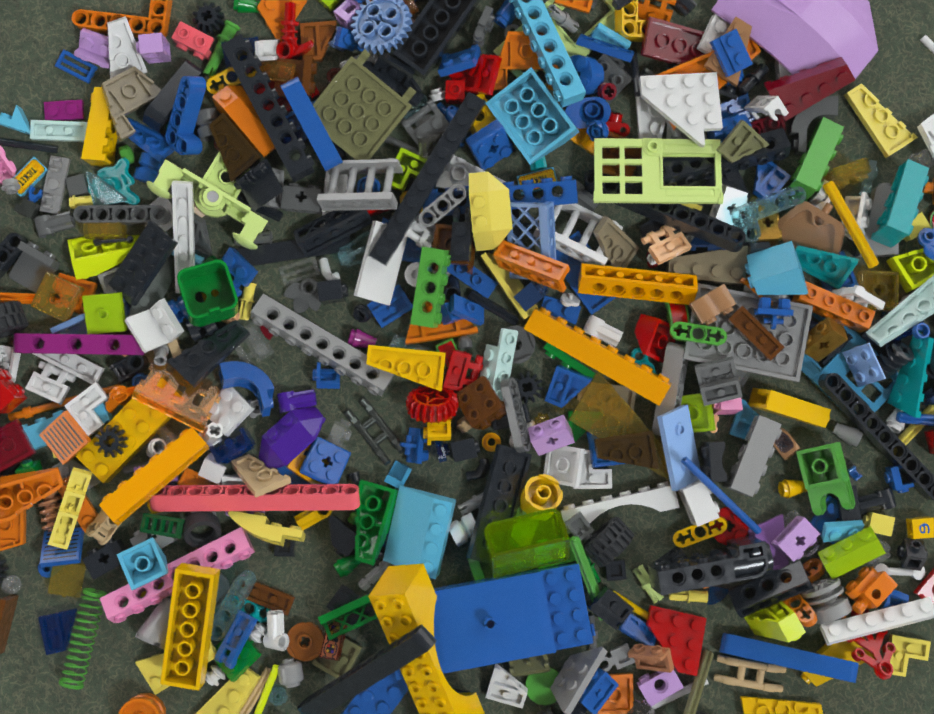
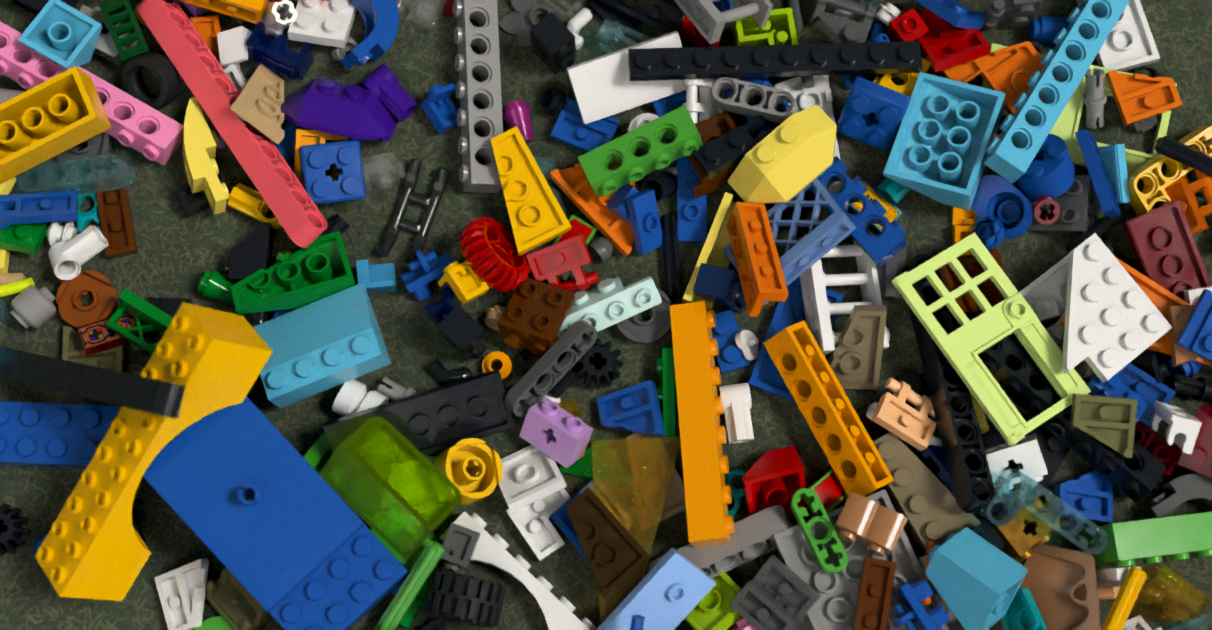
camera: 55 degrees right, 10 degrees down
(615, 124) = (1012, 252): red piece -> none

